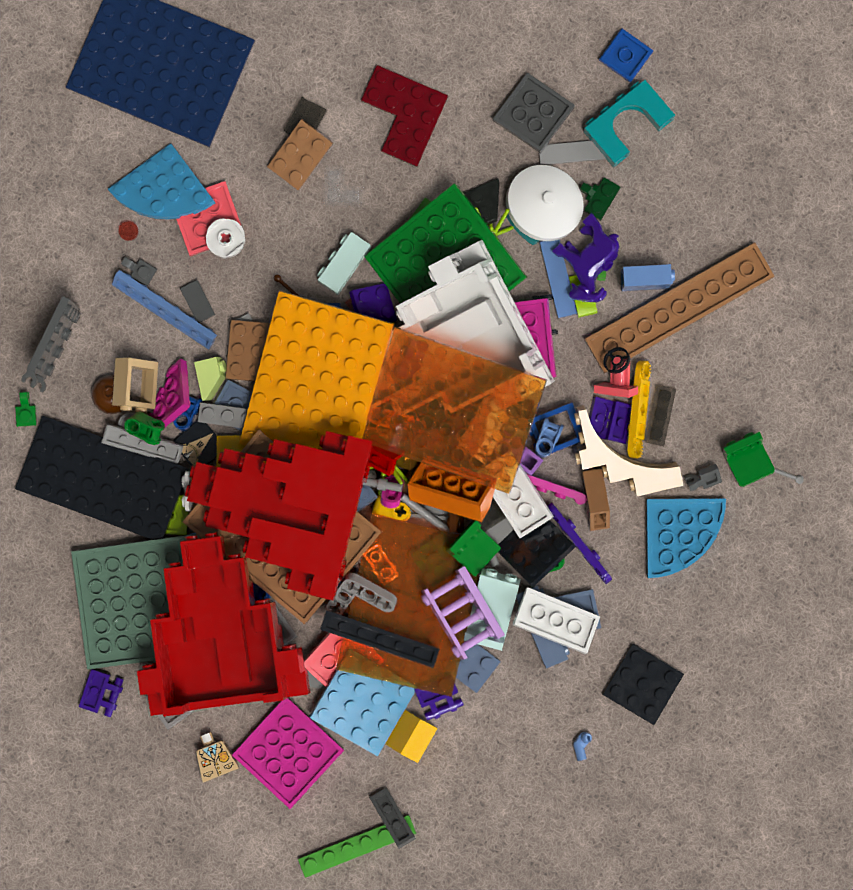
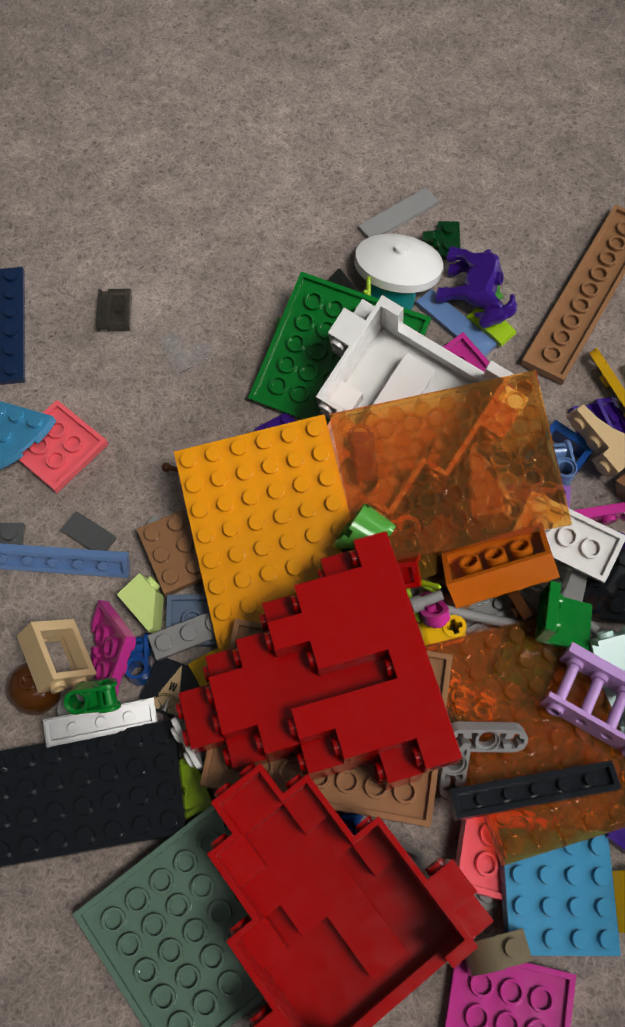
camera: 30 degrees left, 20 degrees down
(225, 249) = (85, 462): white plate -> none
(300, 154) = (125, 338): medium nougat plate -> none
(302, 711) = (498, 953): none -> dark tan brick
(343, 263) = (230, 410): light aqua brick -> none
(368, 424) = (364, 523): none -> bright green brick
(415, 108) = (217, 250): dark red plate -> none
(533, 113) = (336, 200): dark grey plate -> none
(619, 376) = (580, 369): coral piece -> none
(626, 55) = (388, 124): blue plate -> none
(640, 98) = (427, 146): teal arch -> none
(647, 277) = (542, 274): medium blue brick -> none

